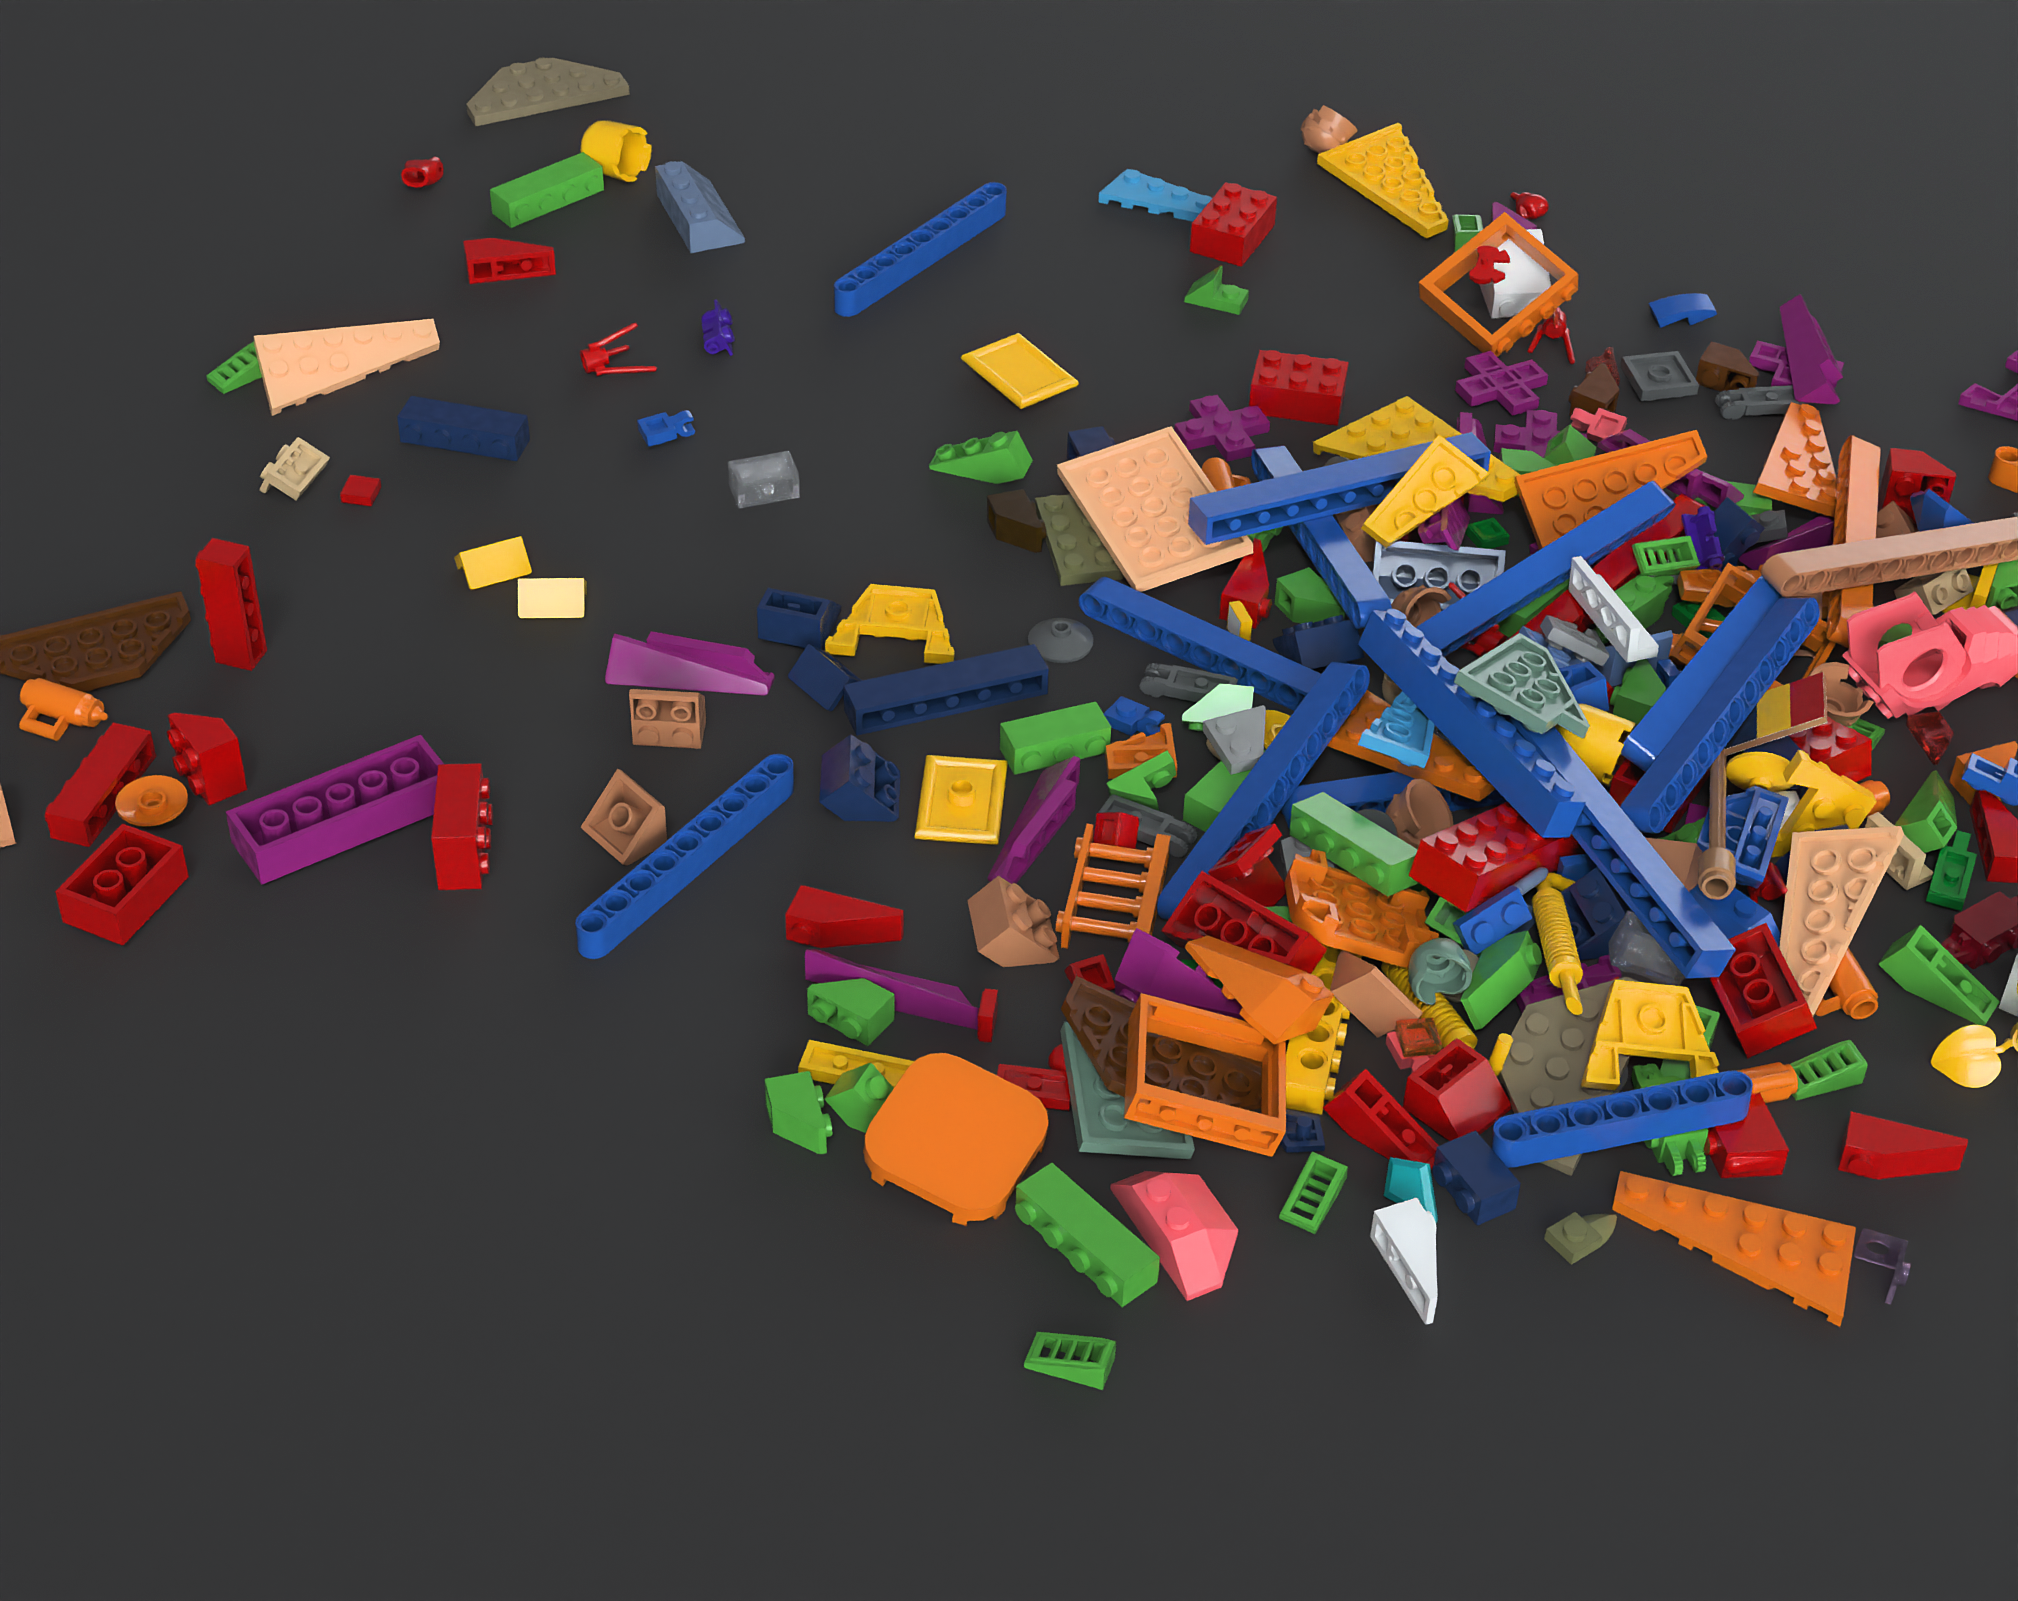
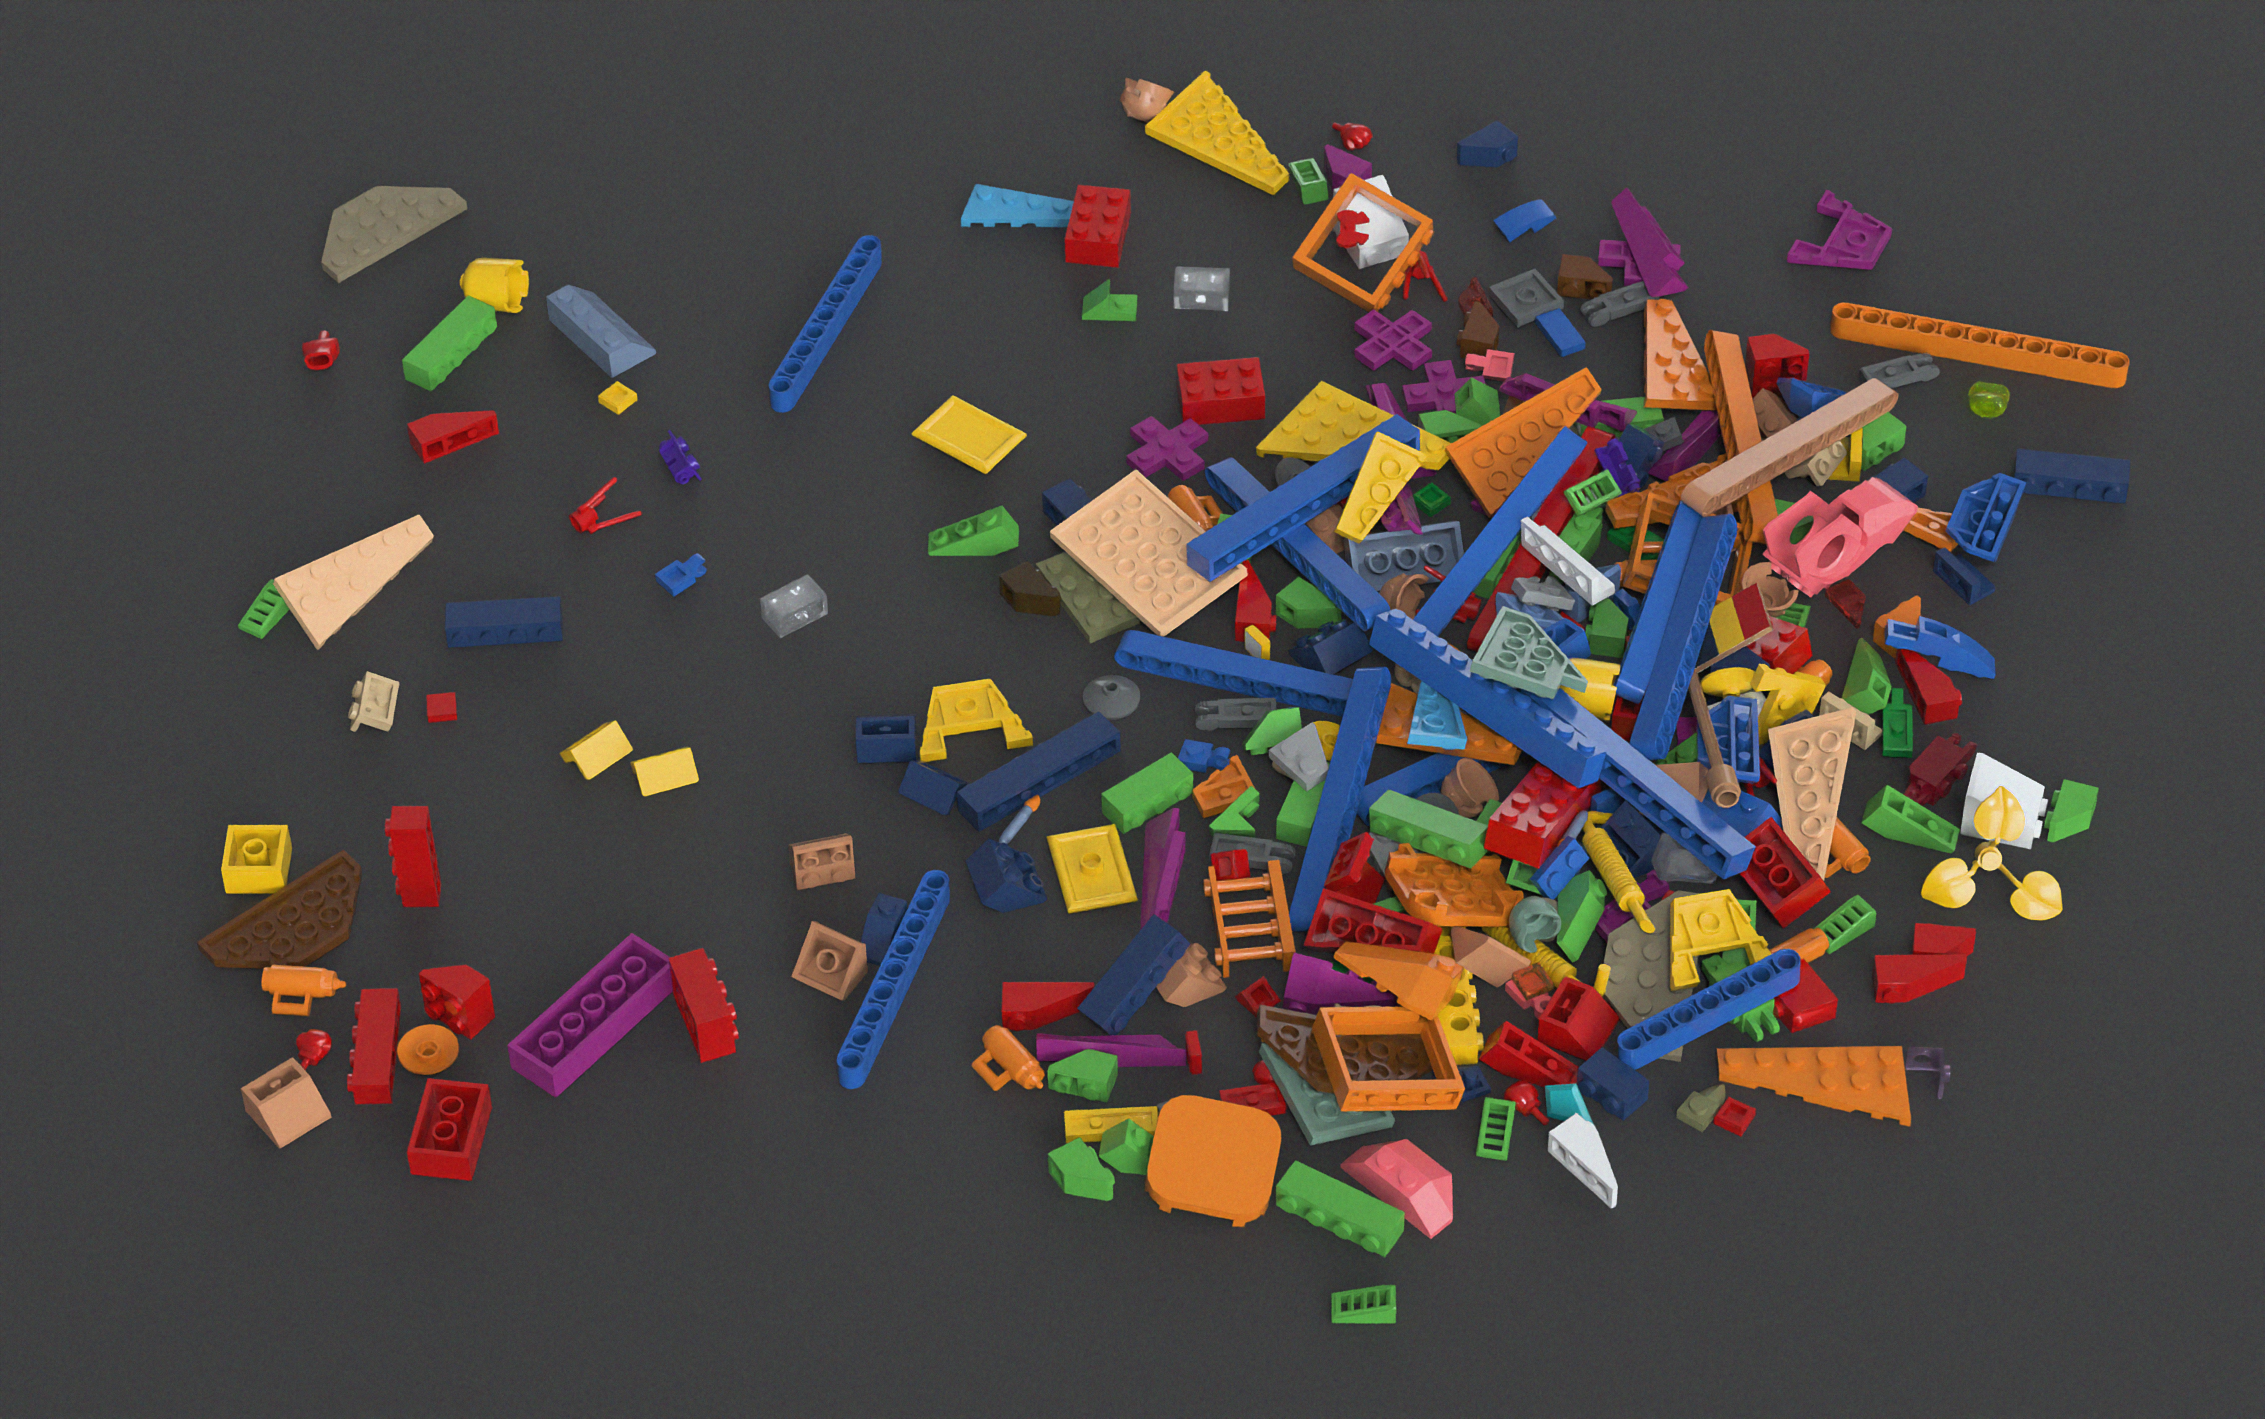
camera: 15 degrees left, 5 degrees up
(36, 770) = (313, 1047): none -> red piece
(86, 577) = (256, 859): none -> yellow brick
(685, 665) = (810, 806): magenta wedge -> none
(686, 268) = (617, 397): none -> yellow tile
(696, 794) = (882, 926): none -> dark blue slope
(779, 969) = (1012, 1057): none -> orange piece
(922, 722) = (1015, 825): none -> sand blue piece
(948, 912) = (1134, 976): none -> dark blue brick
(1317, 297) = (1201, 288): none -> clear brick
(1363, 1169) = (1526, 1100): none -> red piece
(1617, 1256) = (1734, 1116): none -> red tile
(1665, 240) = (1488, 147): none -> dark blue slope
(1685, 413) = (1560, 332): none -> blue tile
(1944, 1116) = (1942, 940): none -> red slope

